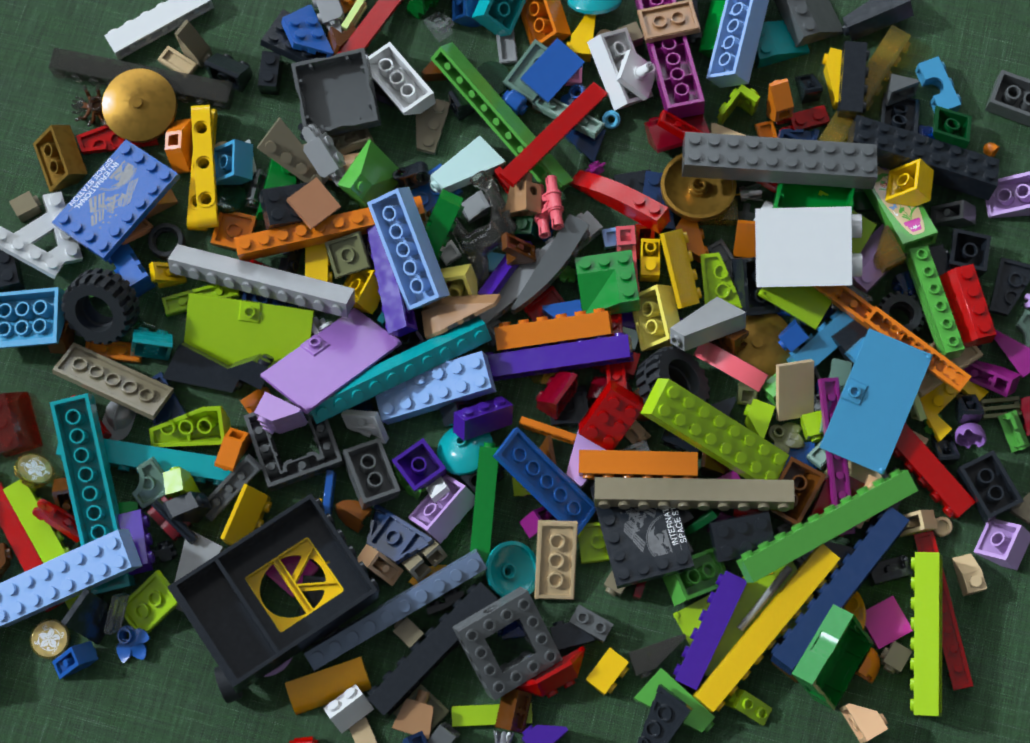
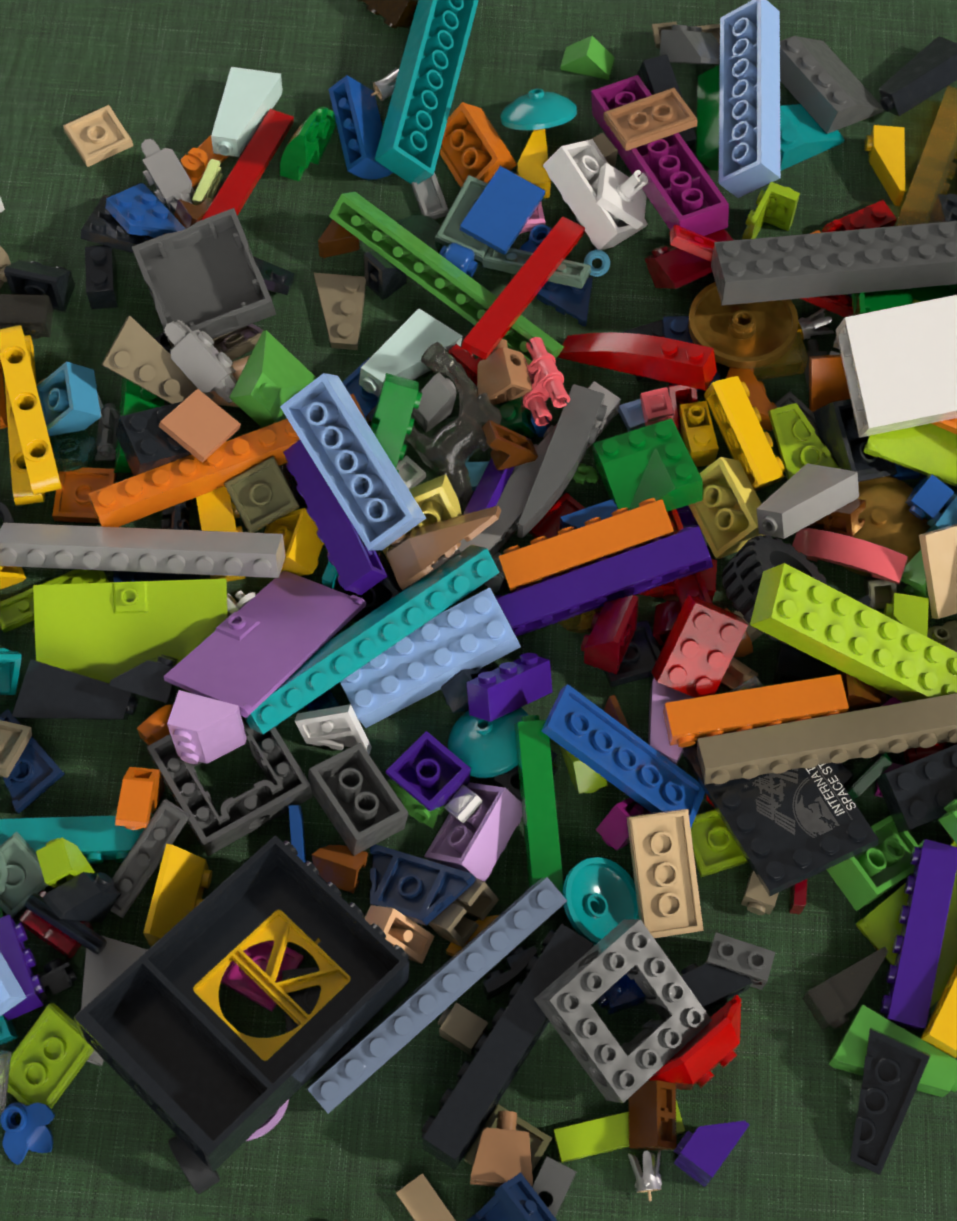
camera: 15 degrees left, 10 degrees down
(194, 428) = (77, 778): lime wedge -> none
(326, 685) = (353, 1135): light orange brick -> none
(348, 708) = (393, 1164): white brick -> none
(400, 81) = (293, 254): white slope -> none
(411, 175) = (335, 367): black piece -> none
(439, 25) = (330, 182): clear slope -> none
(545, 430) = (601, 690): orange tile -> none
(596, 167) = (591, 326): magenta plate -> none
(607, 671) = (781, 1029): yellow brick -> none
(779, 101) = (827, 196): orange slope -> none
(808, 88) = (857, 183): black slope -> none
(852, 79) = (917, 156): black brick -> none

